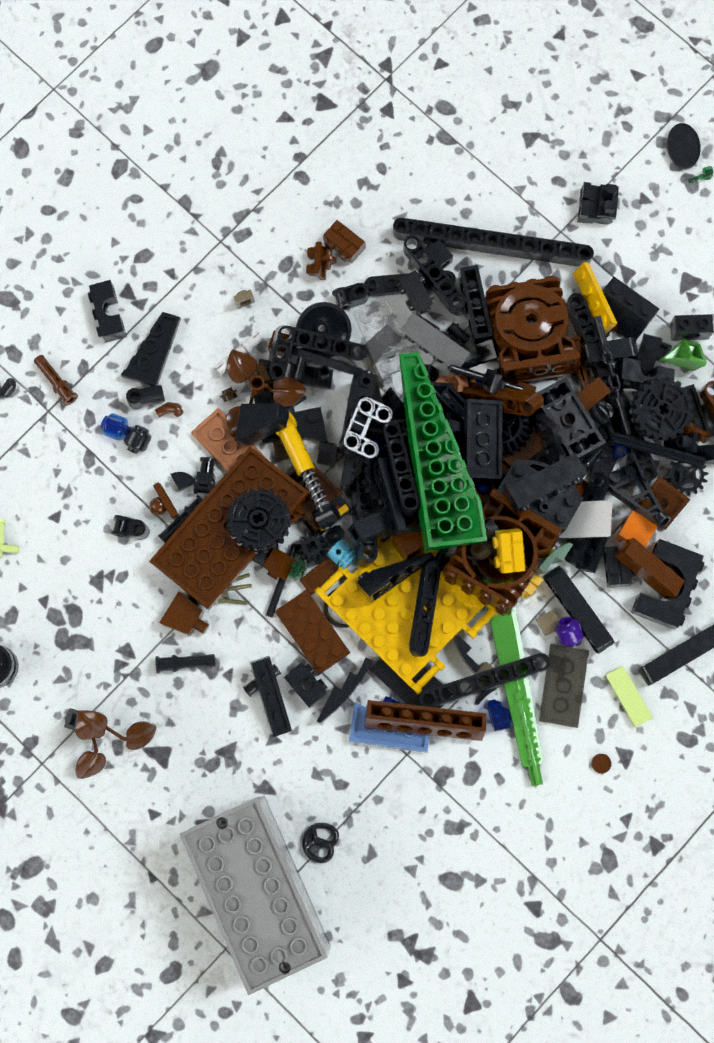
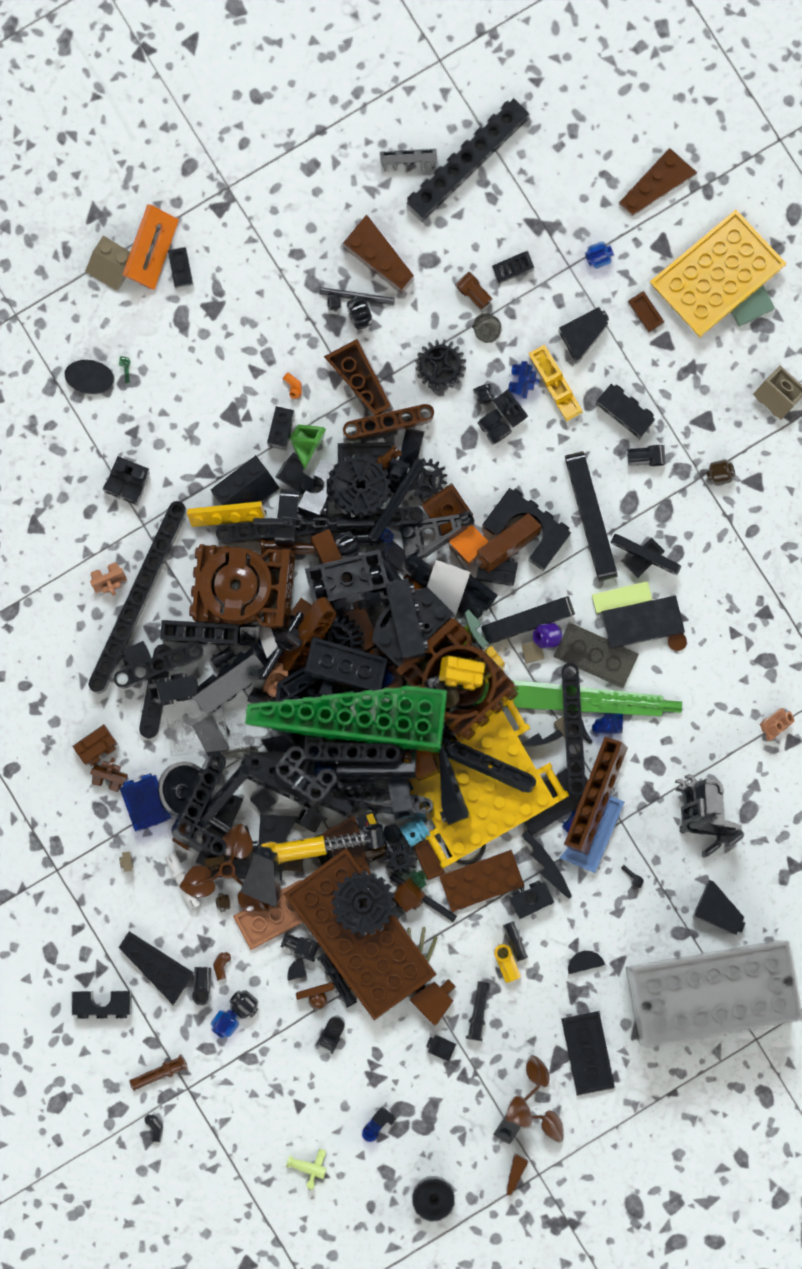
camera: 75 degrees left, 5 degrees up
(43, 740) = (517, 1168): none -> reddish brown slope
(48, 590) = (376, 1123): none -> leg
(142, 635) = (440, 1047): none -> black bracket
(171, 781) = (588, 1053): none -> black tile
(235, 678) = (507, 965): none -> yellow piece
(260, 754) = (585, 960): none -> black tile
(270, 696) = (534, 936): black plate -> none
(300, 295) = (143, 802): none -> clear blue brick
(320, 842) = (681, 925): black piece -> none
(334, 407) = (263, 800): none -> black plate
(344, 876) = (719, 910): none -> black slope
(349, 297) = (154, 755): black piece -> none
(352, 786) = (637, 881): none -> black hand
(436, 836) = (705, 813): none -> black piece
(499, 212) = (109, 581): none -> nougat hips
(548, 886) = (776, 723): none -> nougat hips
(610, 723) = (643, 622): none -> black tile
(675, 708) = (639, 566): none -> black plate
(679, 707) = (646, 554): none -> black beam

